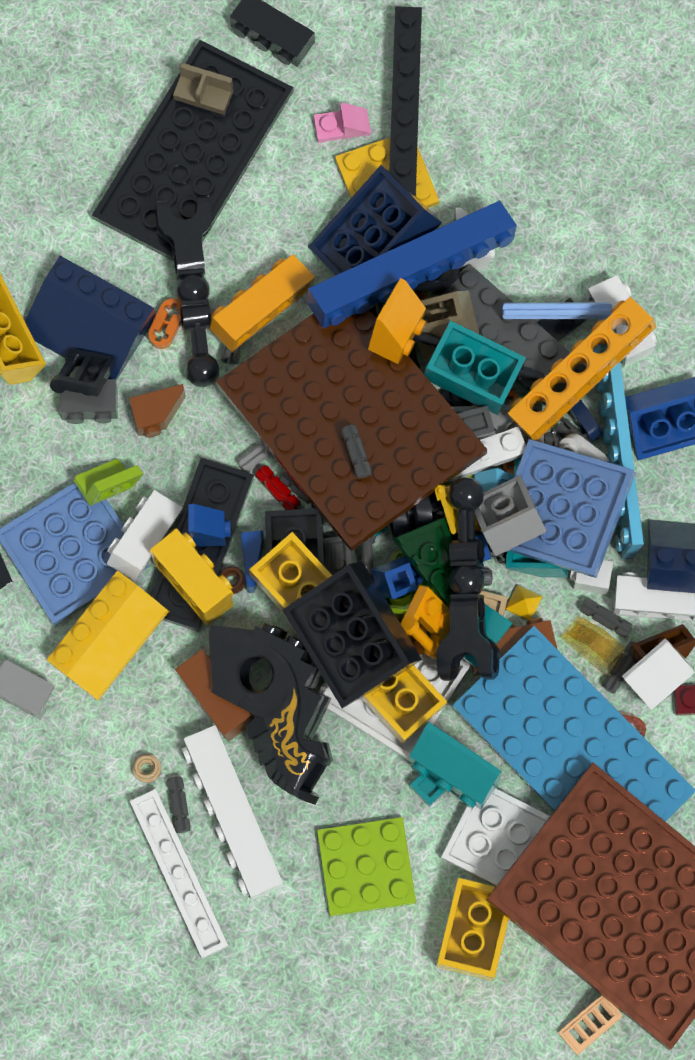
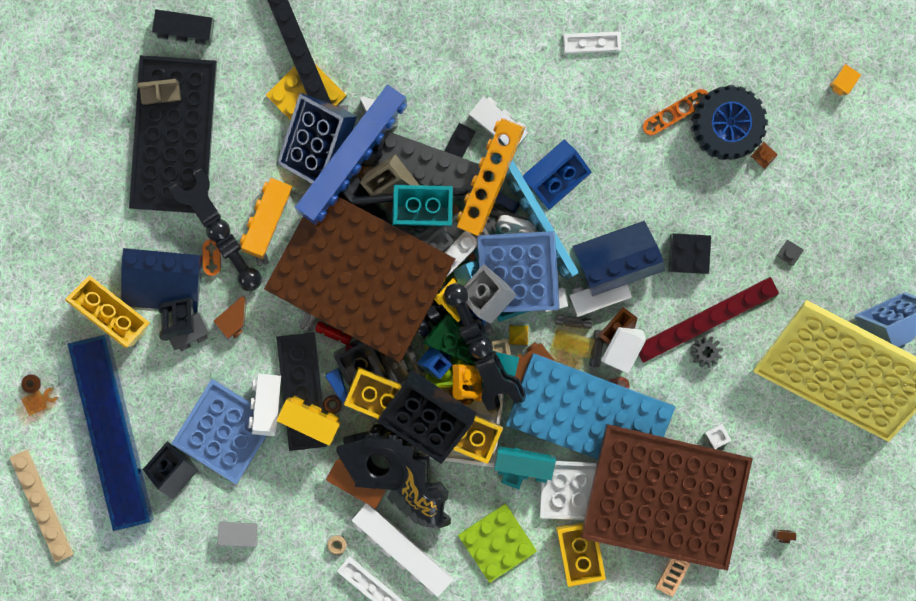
camera: 30 degrees left, 15 degrees up
(107, 481) = (224, 379): lime panel -> none
(107, 635) = (274, 477): yellow slope -> none
(179, 804) = (367, 558): dark grey axle -> none
(208, 526) = (303, 383): blue slope -> none
(342, 124) = (259, 70): bright pink slope -> none
(356, 451) = (375, 299): dark grey axle -> none
(398, 324) = (363, 203): light orange slope -> none
(557, 310) = (456, 140): light blue axle -> none

